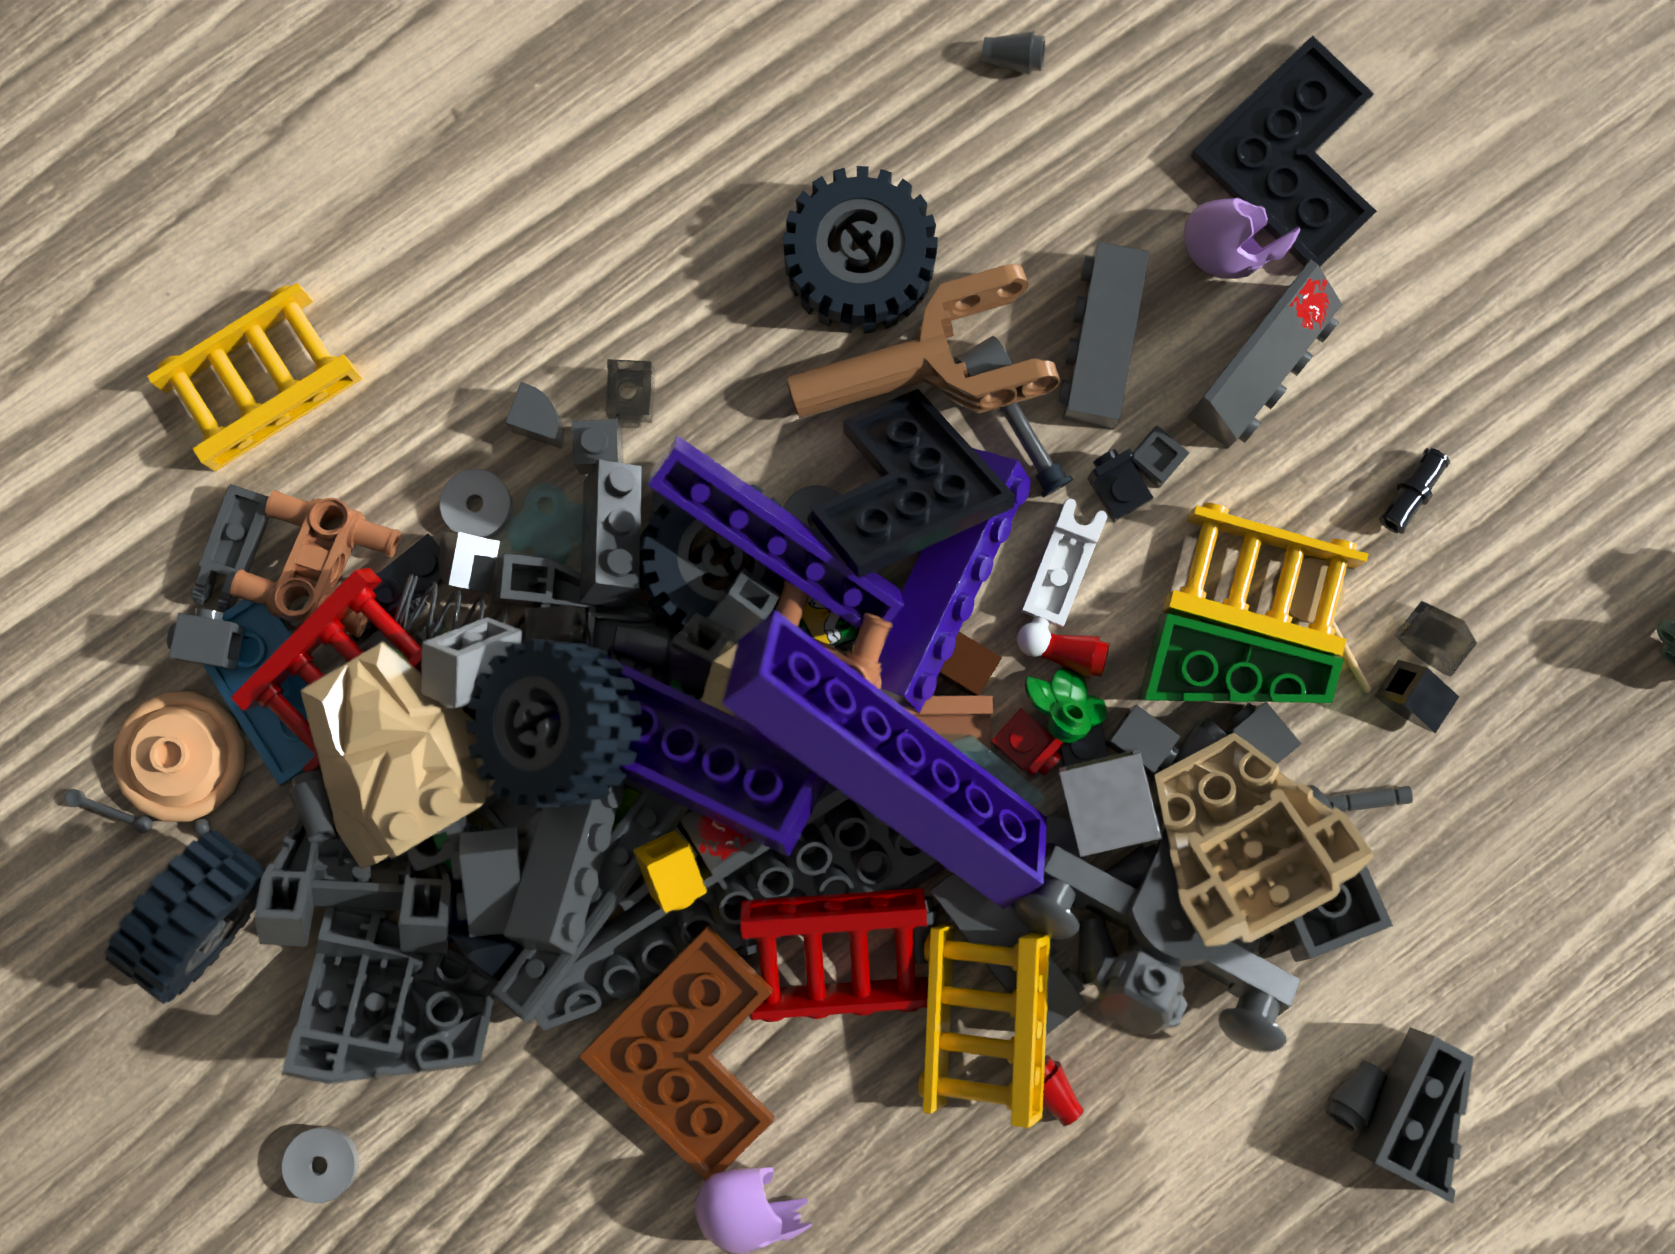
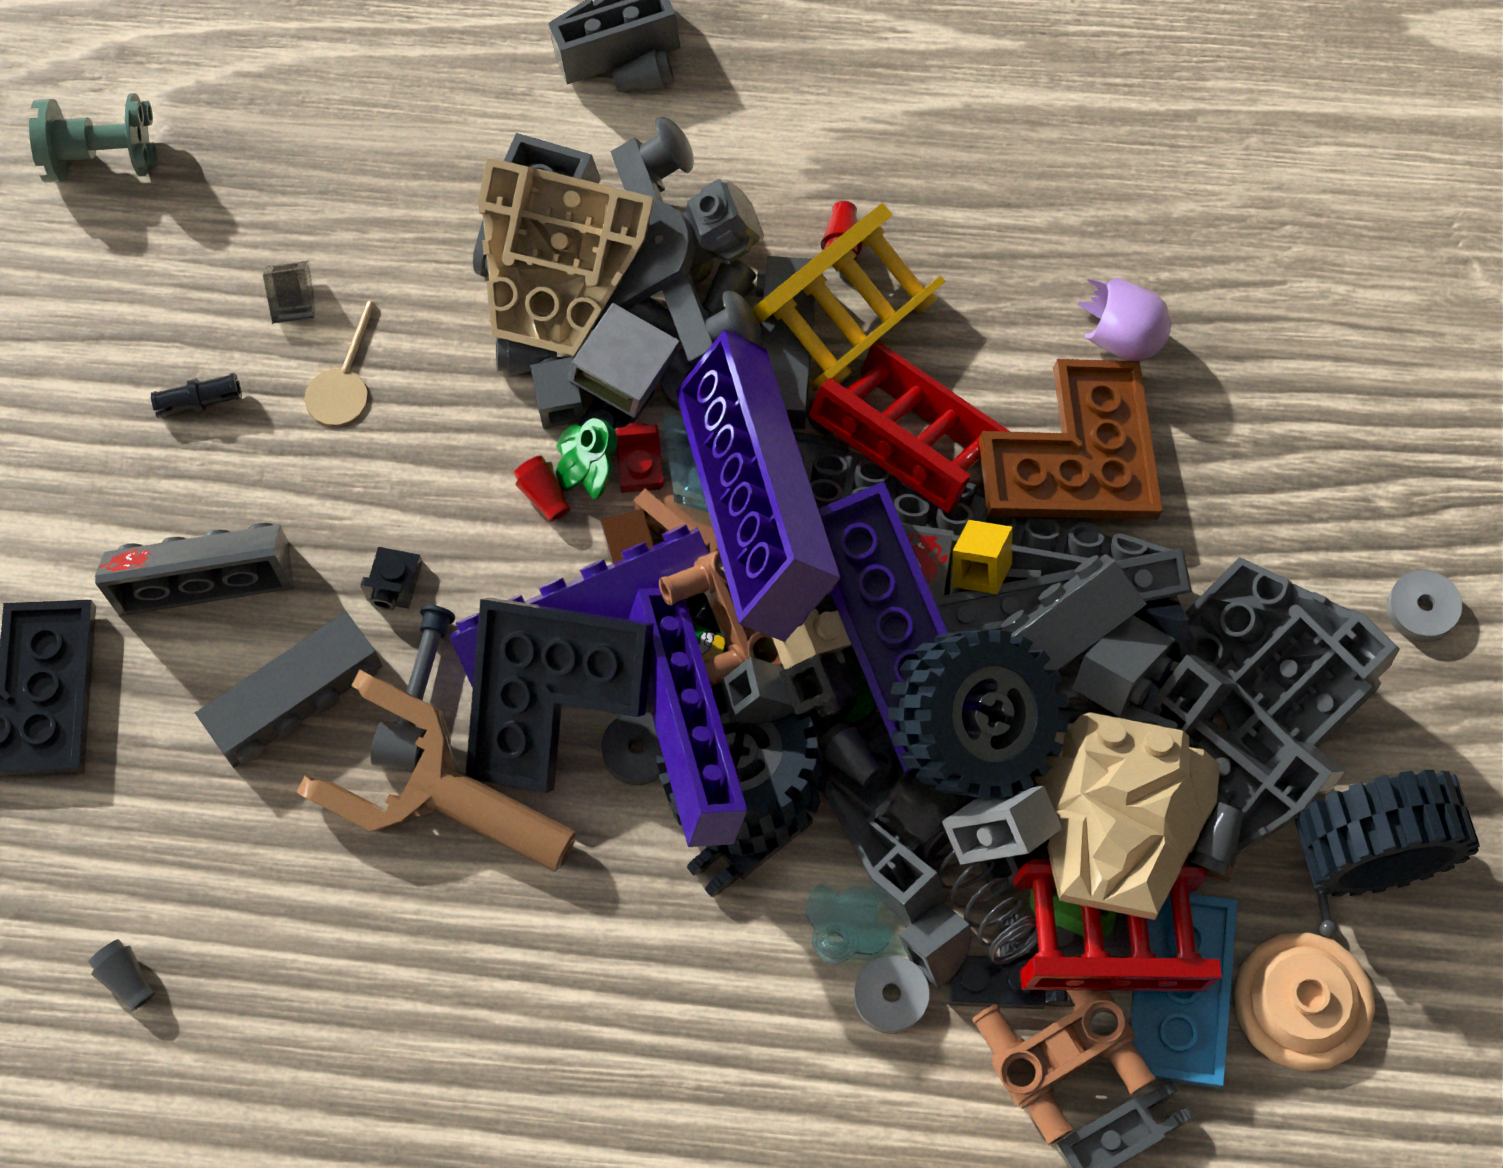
camera: 135 degrees left, 15 degrees down
(77, 798) = (1418, 1041): dark grey hinge -> none
(205, 639) = (1207, 1056): dark grey brick -> none
(535, 417) = (780, 1016): dark grey brick -> none
(596, 441) = (753, 945): dark grey brick -> none
(611, 534) = (805, 857): dark grey brick -> none
(630, 375) = (687, 986): clear smoke brick -> none
(877, 216) = (452, 916): black wheel -> none
(1058, 577) = (498, 552): white plate -> none
(1158, 456) = (342, 575): dark grey tile -> none
(1221, 664) = (454, 392): green wedge -> none
(1222, 239) = (133, 673): lavender helmet -> none
(1234, 612) = (386, 388): yellow fence -> none
(1264, 731) = (471, 328): dark grey brick -> none
(1371, 799) = (443, 234): dark grey wheel -> none
(1417, 695) = (343, 268): black brick -> none

